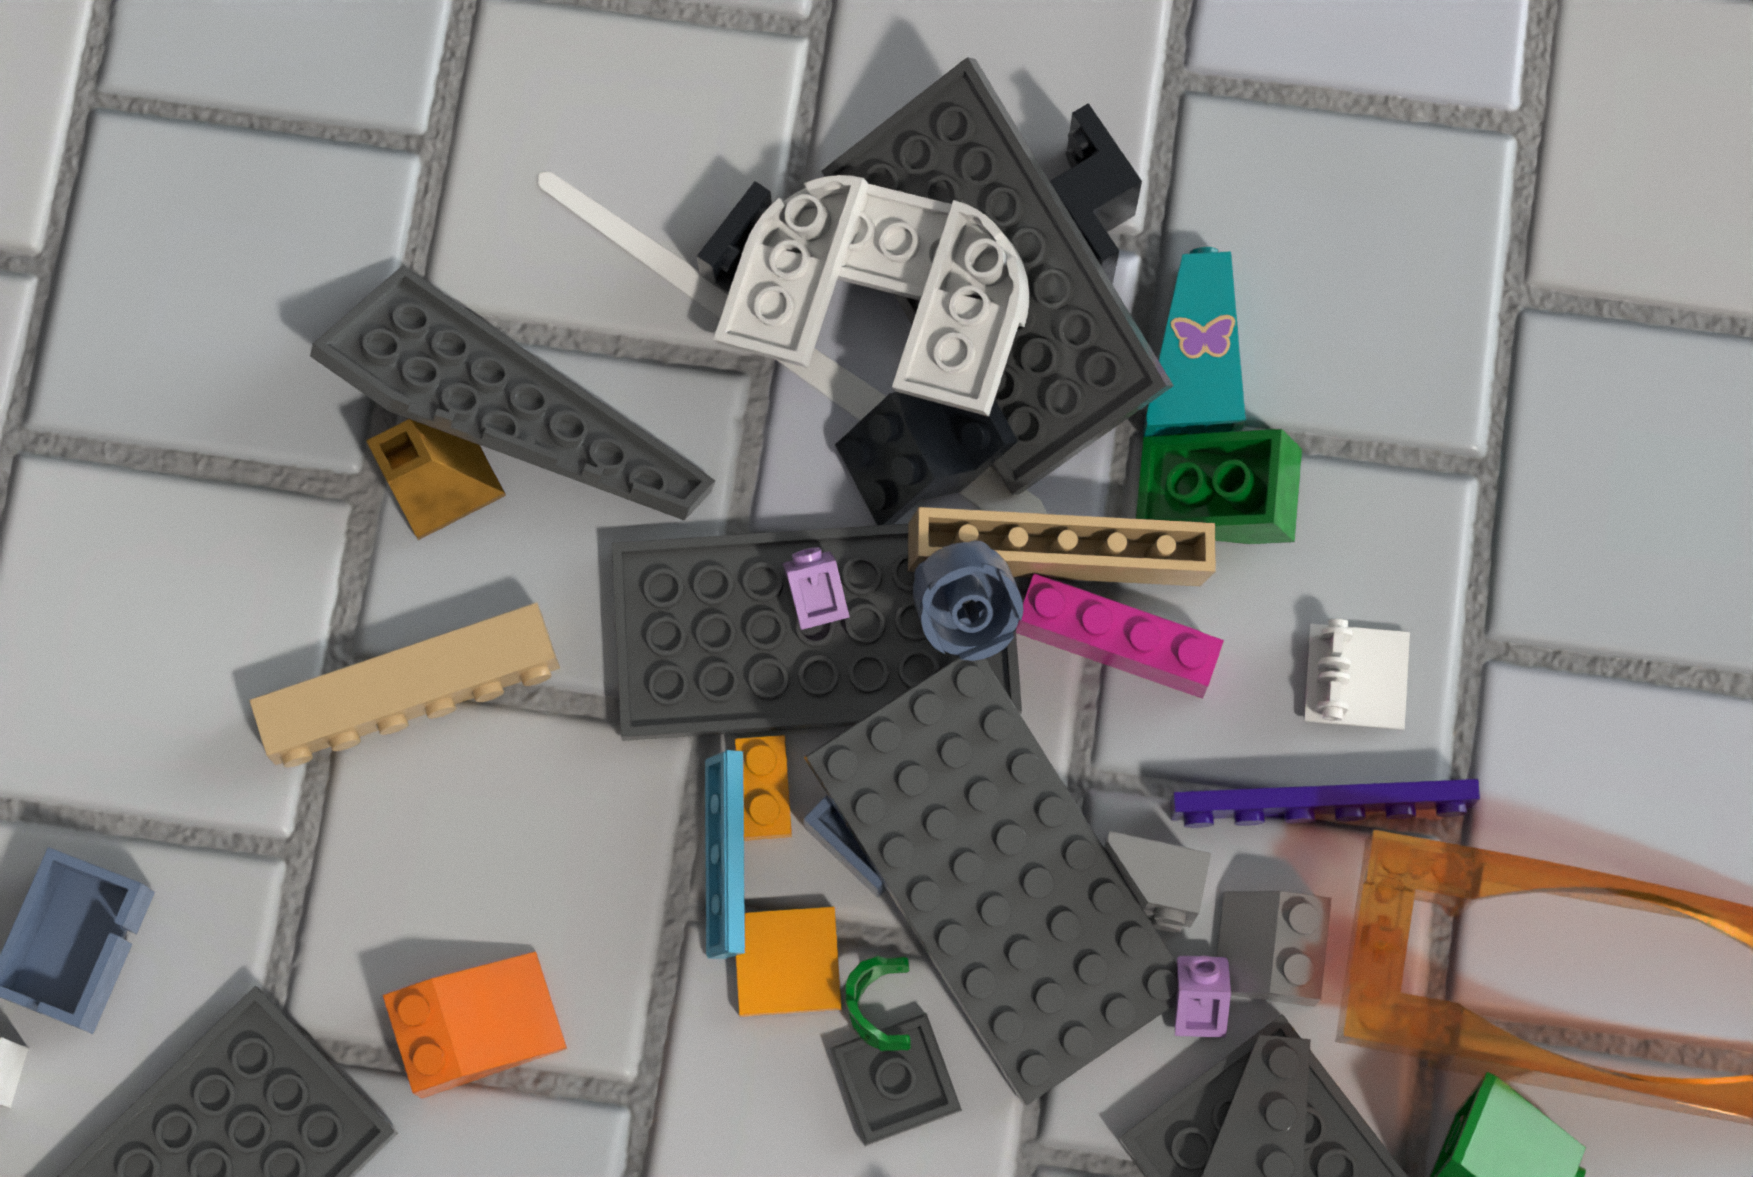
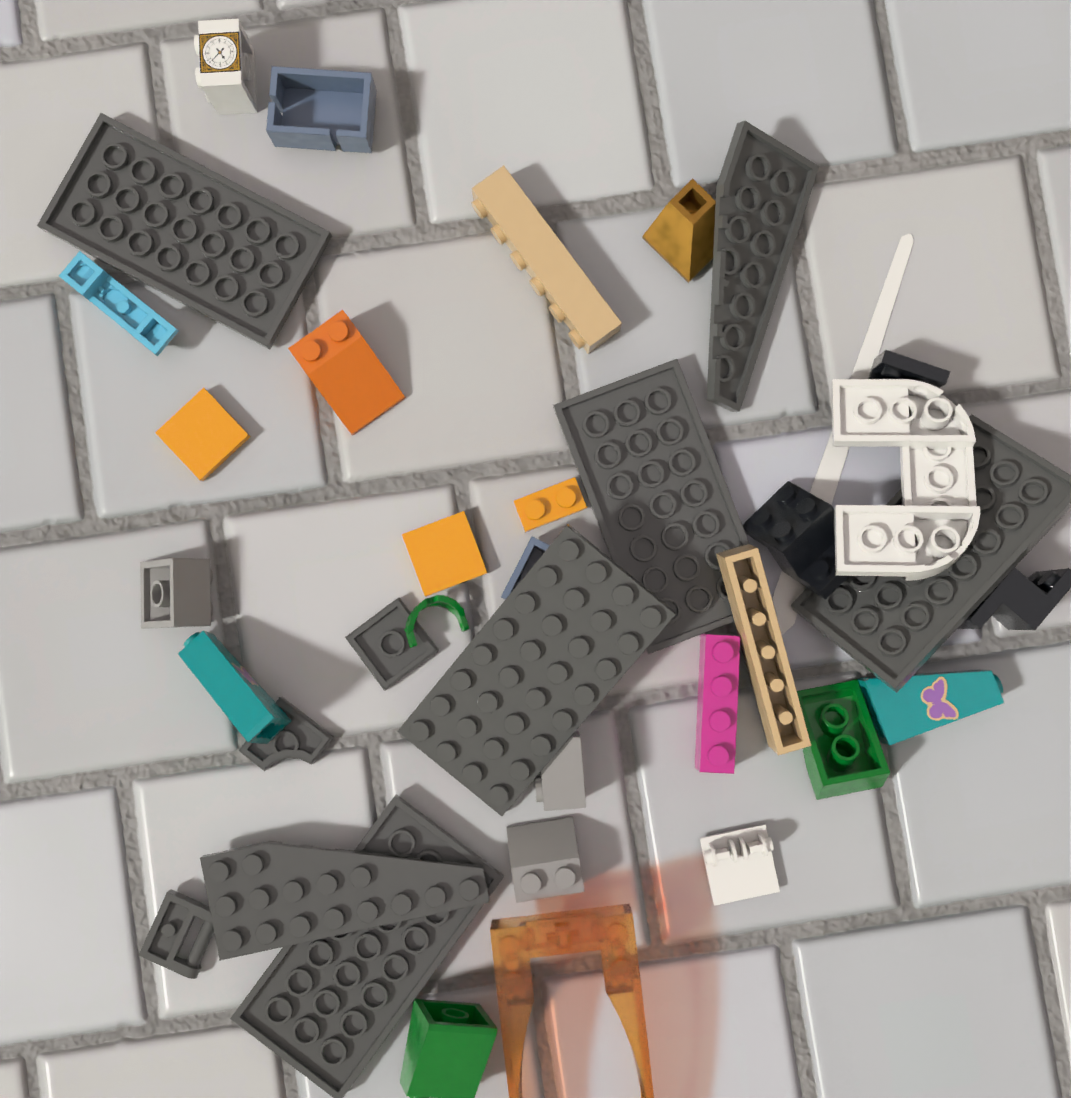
camera: 75 degrees right, 10 degrees up
(724, 855) = (498, 493): medium azure tile -> none
(815, 588) = (686, 497): lavender bracket -> none
(964, 574) = (704, 599): sand blue brick -> none
(1202, 996) = (500, 823): lavender bracket -> none
(1345, 801) = (652, 881): dark purple plate -> none

